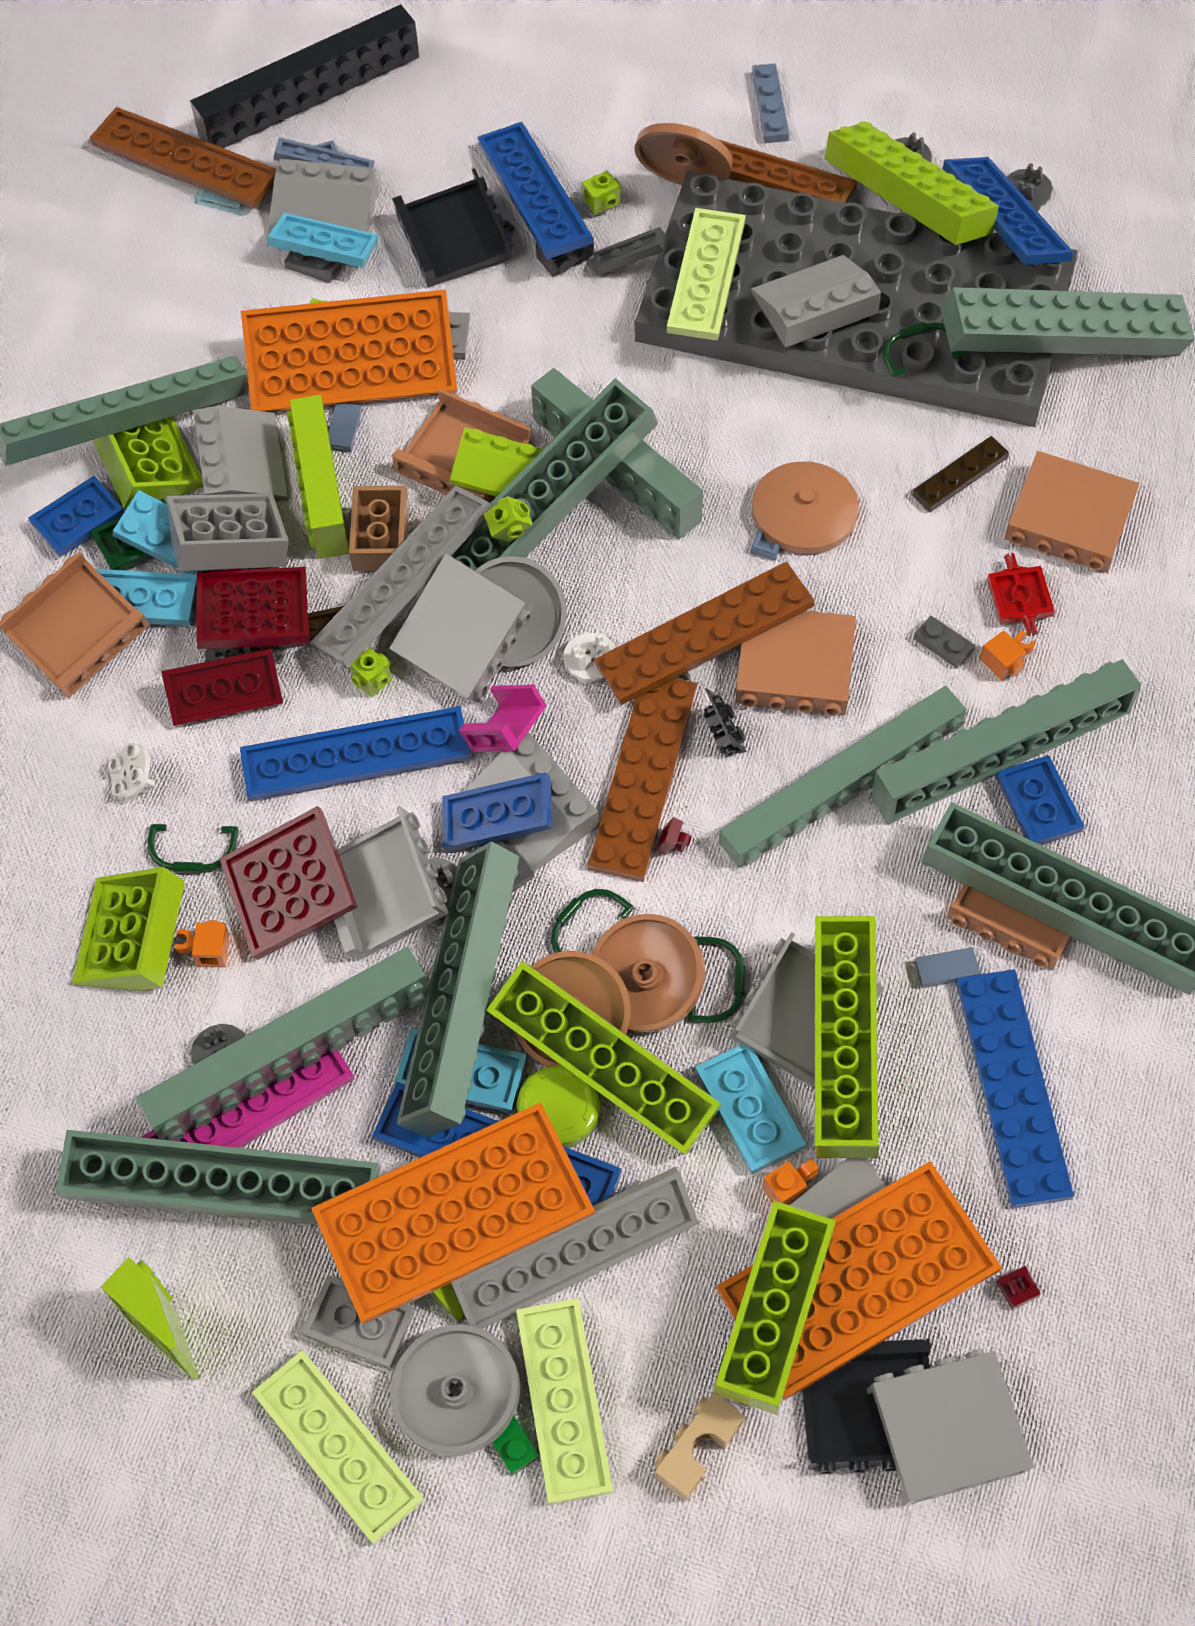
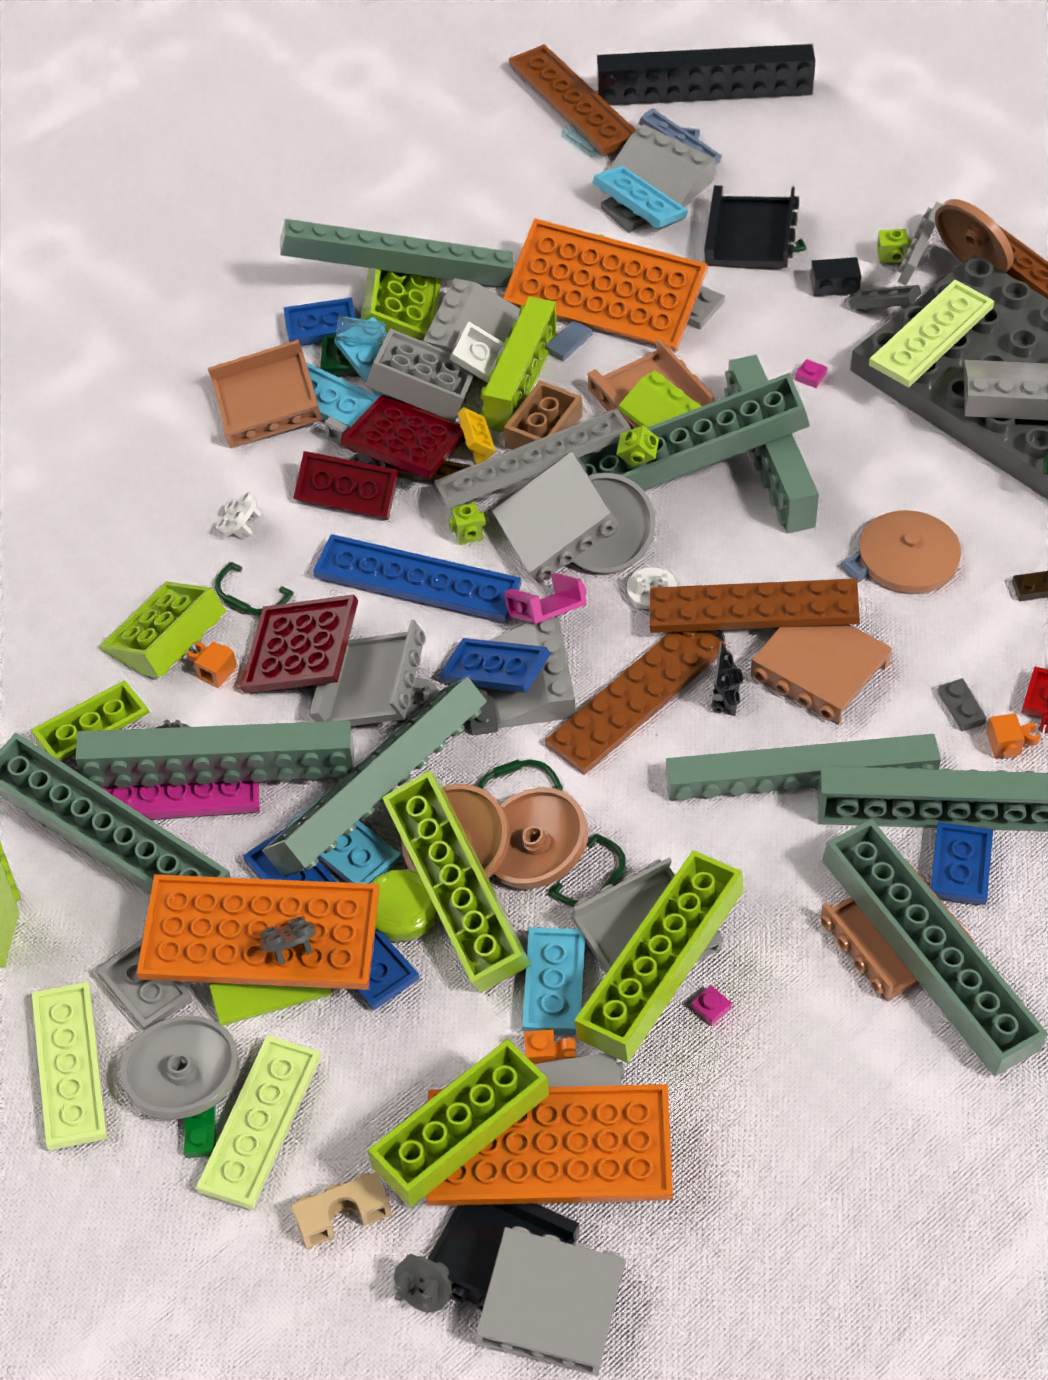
camera: 30 degrees right, 10 degrees down
(127, 1071) = (104, 711): none -> lime slope
(137, 512) = (360, 331): none -> clear light blue tile
(174, 632) = (335, 430): none -> light grey tile
(270, 482) = (476, 351): none -> white plate
(322, 573) = (476, 434): none -> yellow bracket
(494, 1206) = (295, 933): none -> dark grey plate
(535, 190) = (835, 223): blue plate -> none
(602, 361) = (811, 373): none -> dark pink plate
(616, 1232) = (343, 1014): light grey plate -> none
(630, 179) = (918, 244): none -> light grey plate
(672, 838) = (627, 750): dark red tile -> none
(826, 1478) = (422, 1283): none -> dark grey plate
(905, 1056) = (711, 1005): none -> dark pink plate
(946, 967) = (793, 955): sand blue tile -> none
(1014, 1089) = (787, 1076): blue plate -> none
(1018, 1287) = (687, 1230): dark red tile -> none

